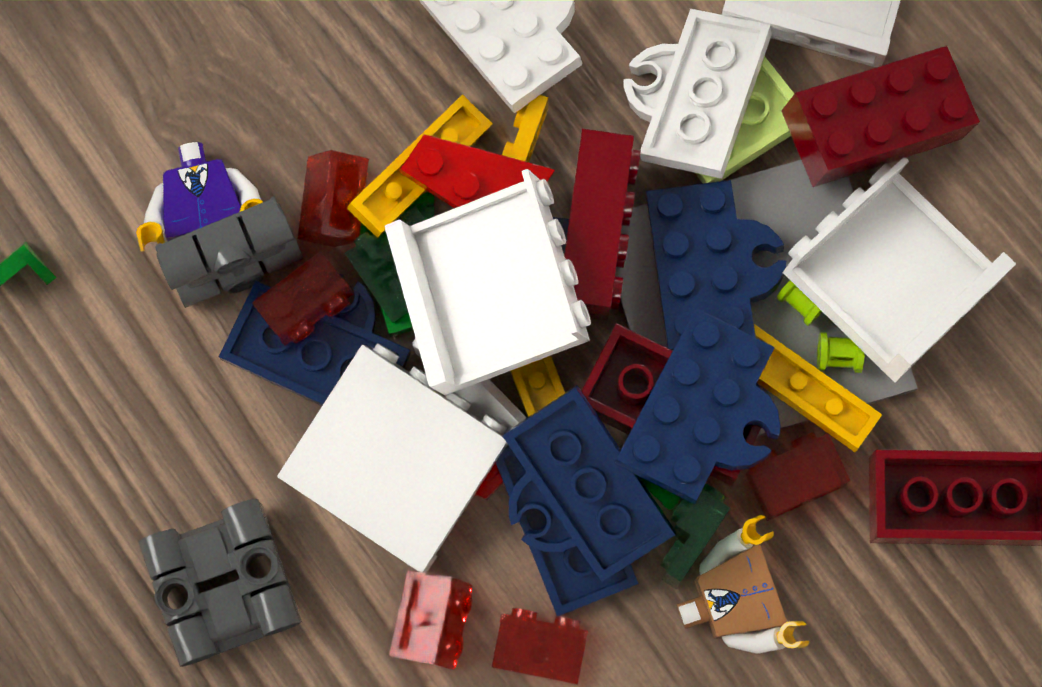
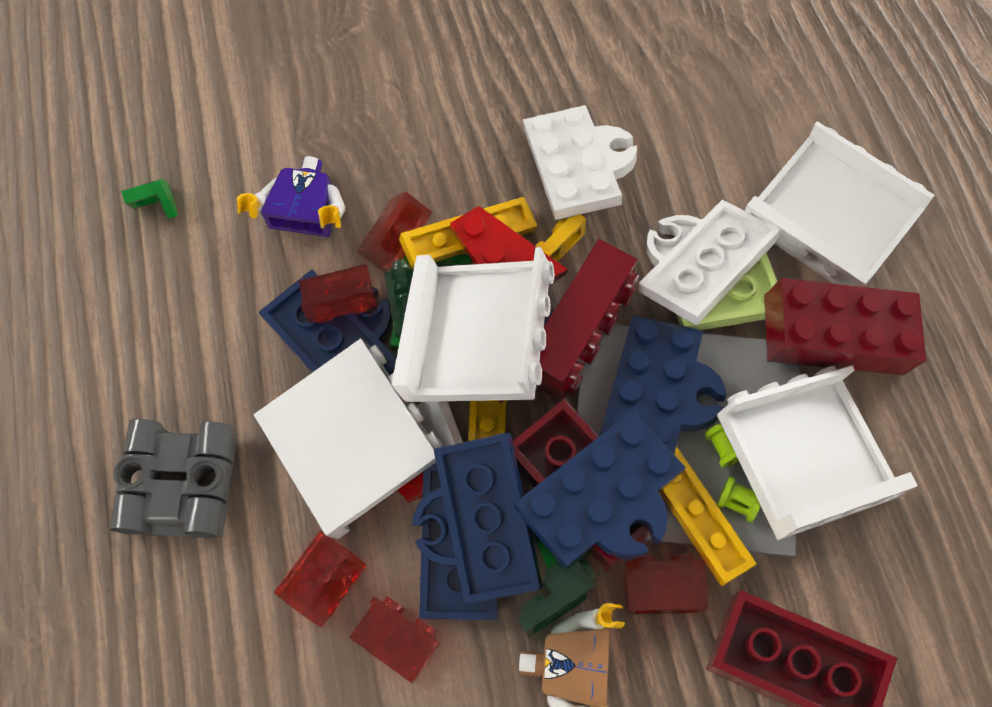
camera: 25 degrees right, 10 degrees down
(229, 252) = (296, 234): dark grey piece -> none

